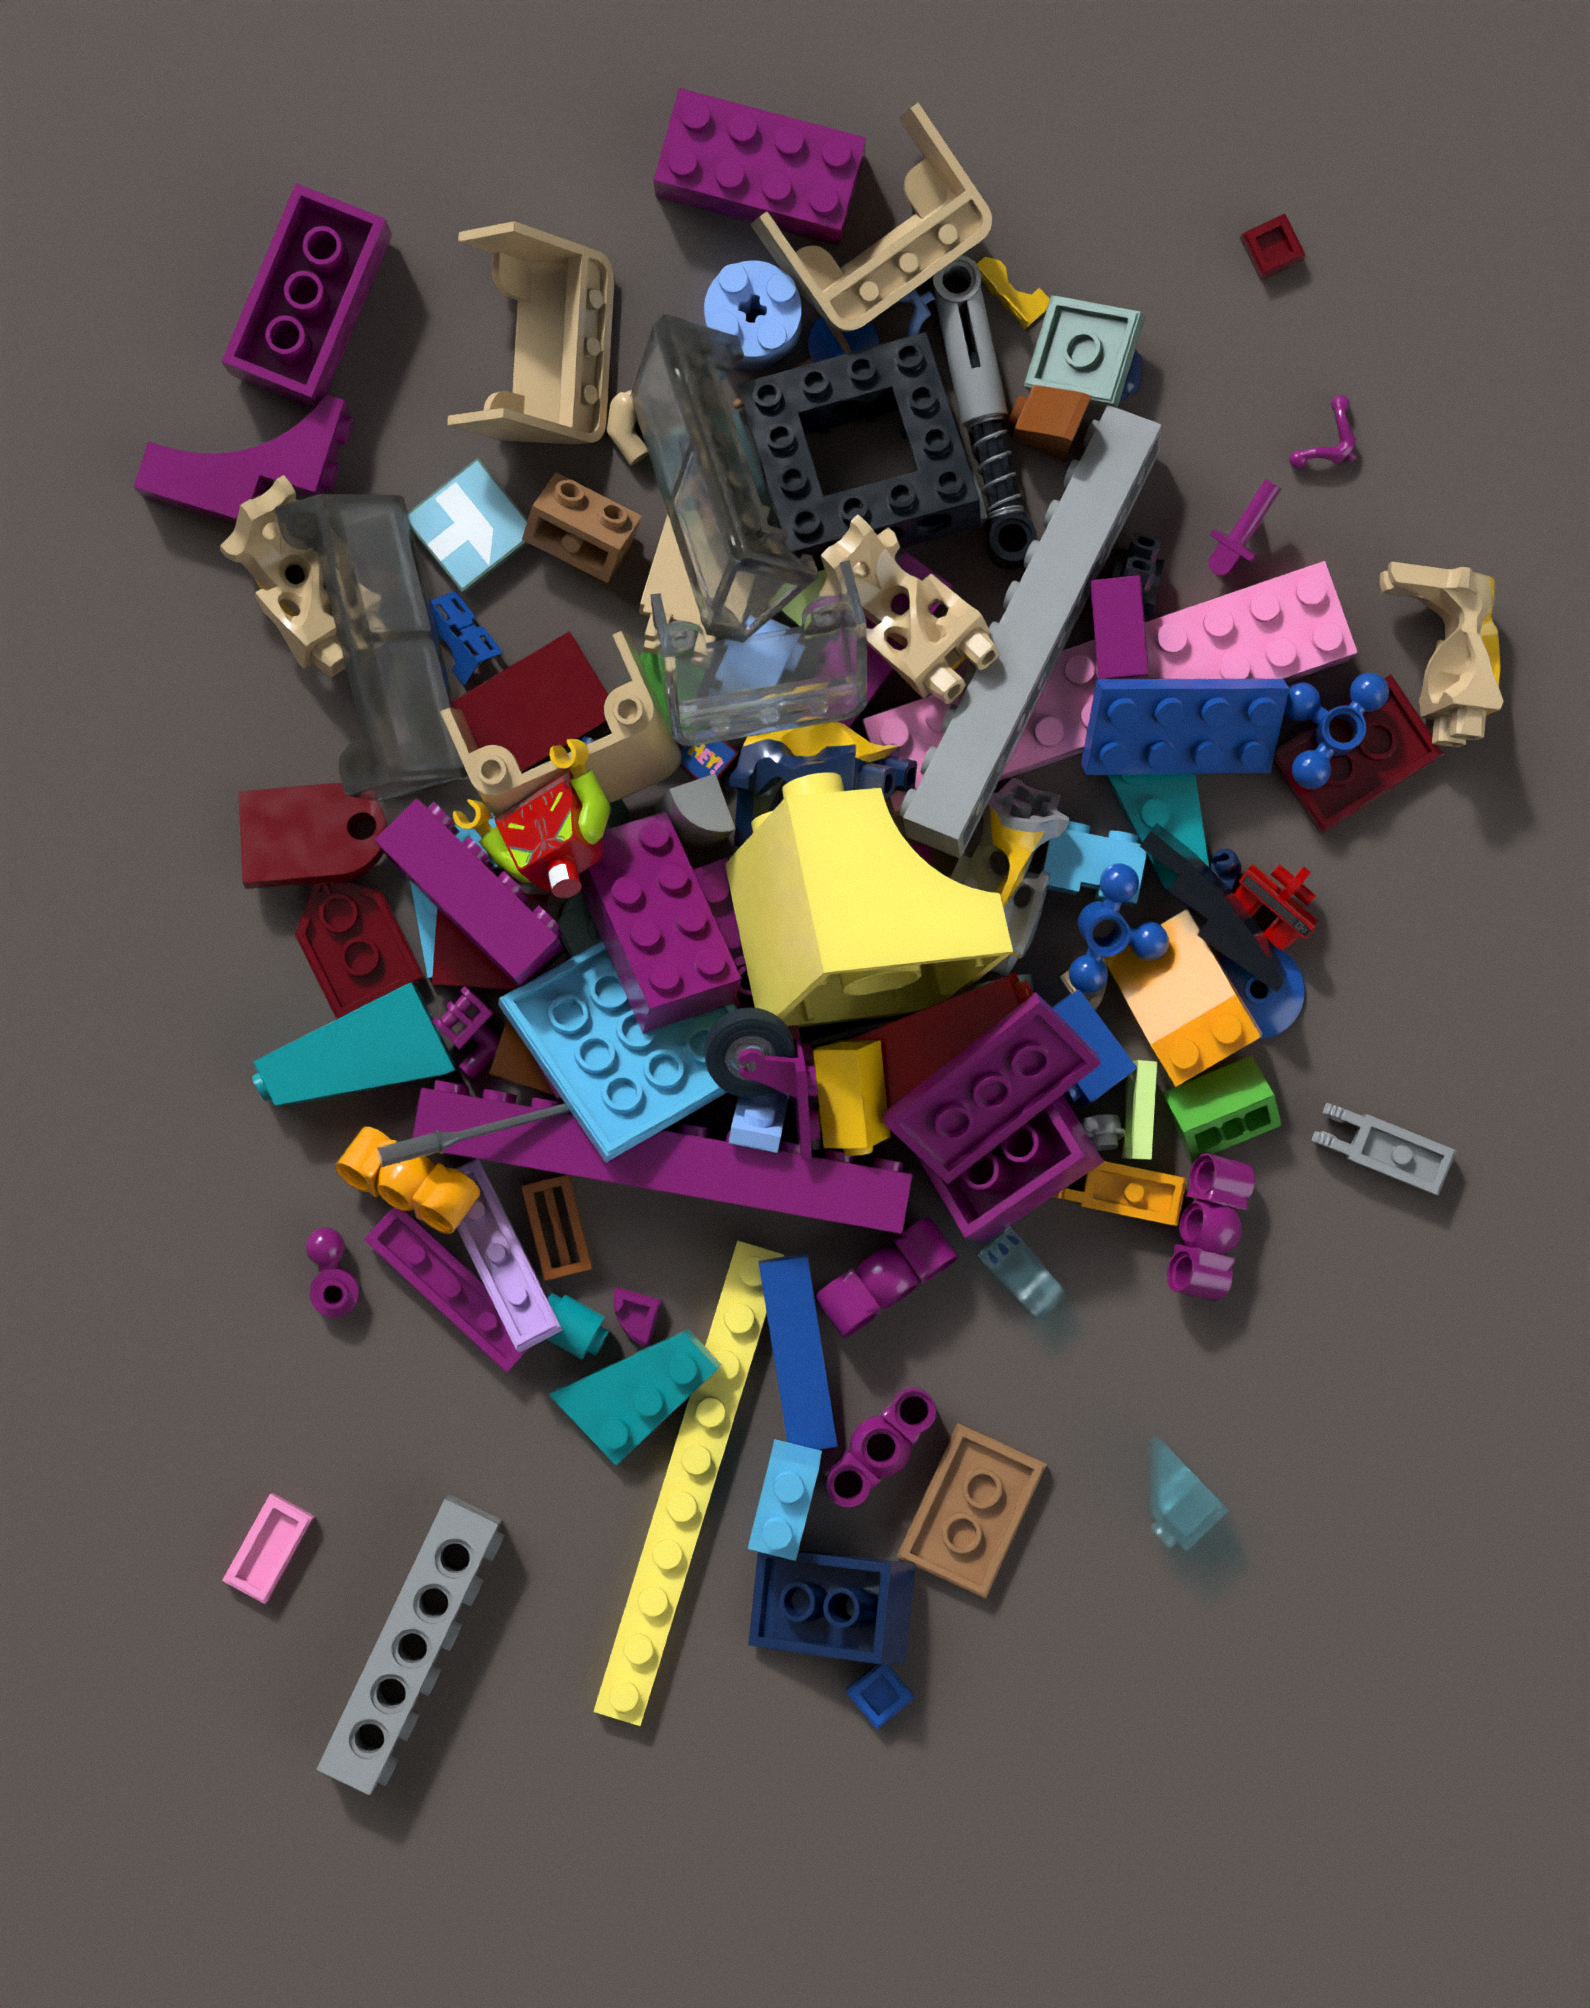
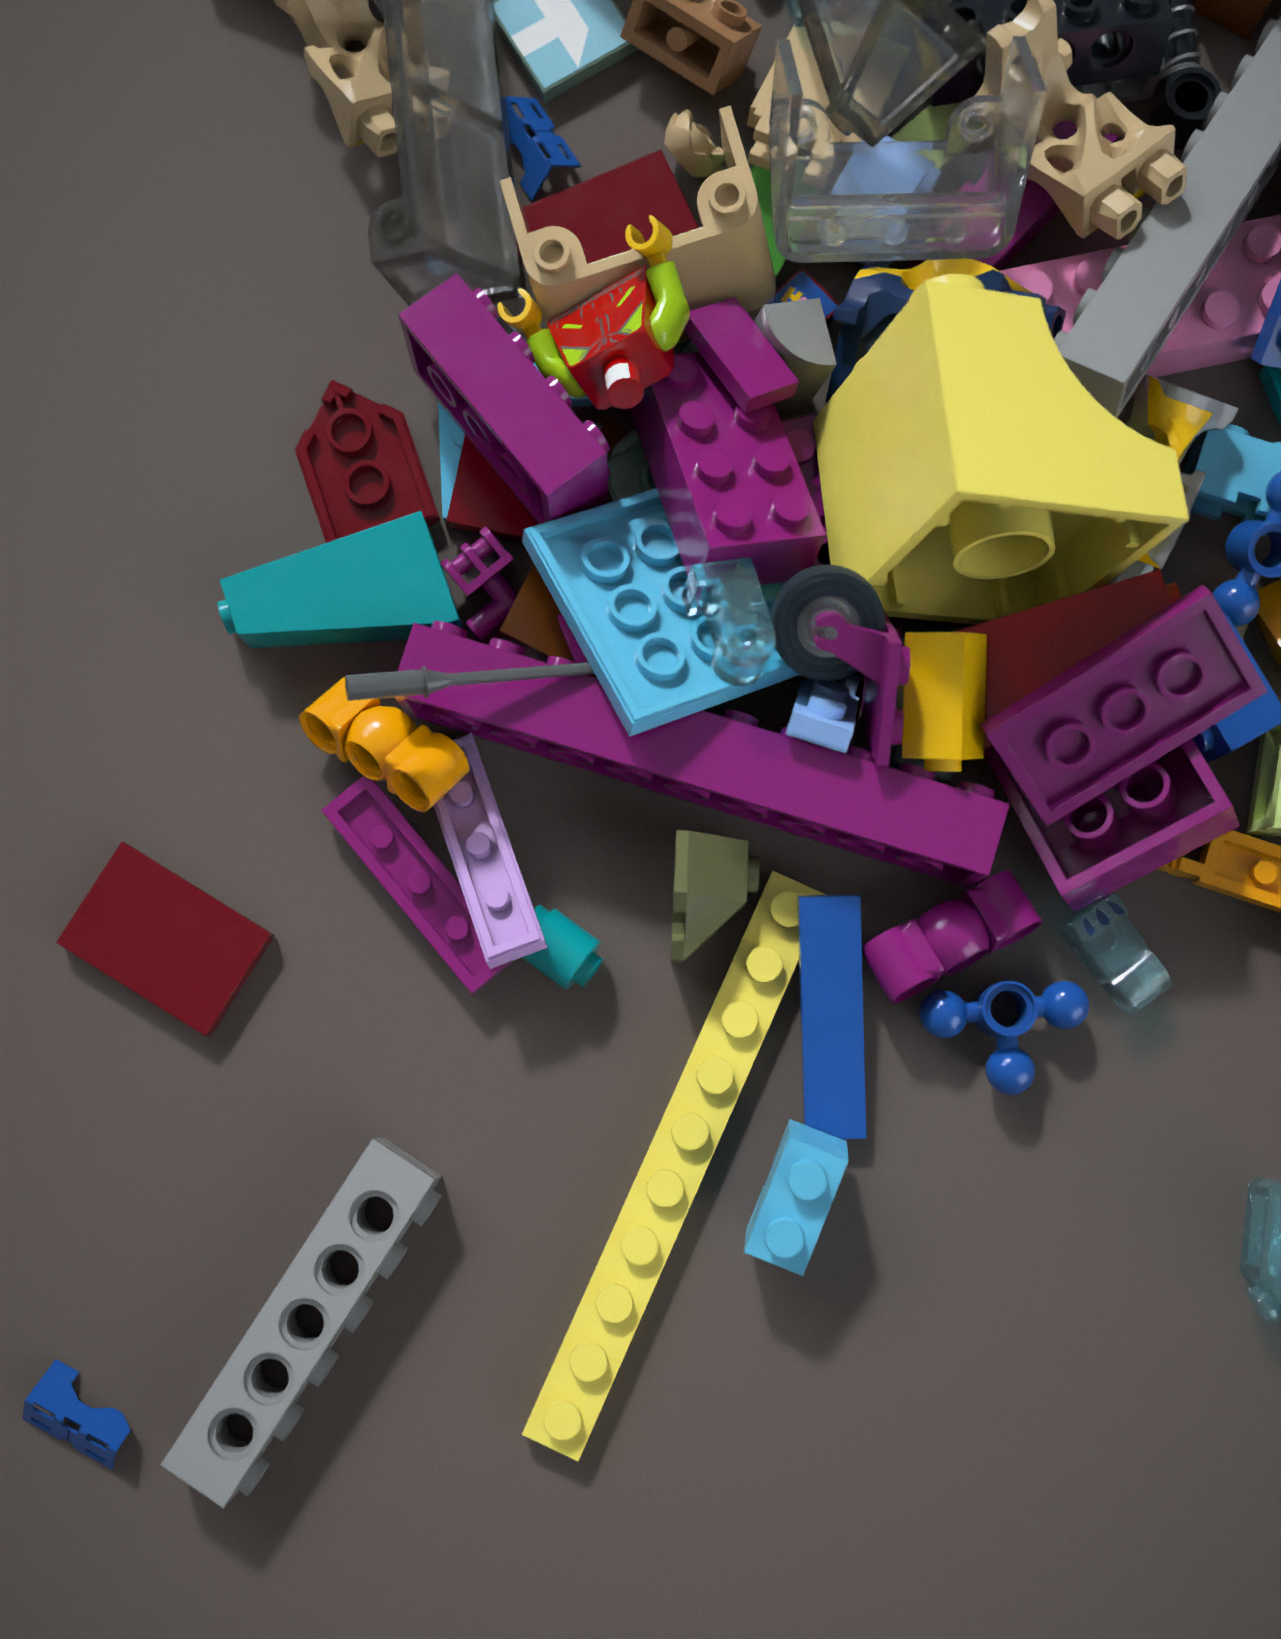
camera: 10 degrees right, 5 degrees down
(223, 1731) = (57, 1396): none -> blue piece
(250, 1358) = (165, 939): none -> dark red tile
(268, 1548) = (151, 1173): bright pink tile -> none
(305, 835) = (323, 338): dark red tile -> none
(326, 1248) = (275, 817): magenta plate -> none
(547, 1187) = (550, 778): dark orange tile -> none
(595, 625) = (693, 146): none -> tan plate
(635, 1395) = (628, 1040): teal wing -> none
(636, 1314) = (638, 945): magenta tile -> none
(656, 829) = (740, 355): none -> magenta tile
(677, 1055) = (735, 617): none -> clear light blue leg
(685, 1264) = (709, 887): none -> olive slope
(833, 1606) = (839, 1341): dark blue slope -> none
(872, 1469) = (948, 1134): magenta piece -> none
(880, 1694) = (883, 1459): blue tile -> none
(945, 1375) = (1009, 1067): none -> blue piece
(971, 1510) = (1022, 1241): medium nougat tile -> none
(1104, 1131) = (1240, 791): light grey plate -> none

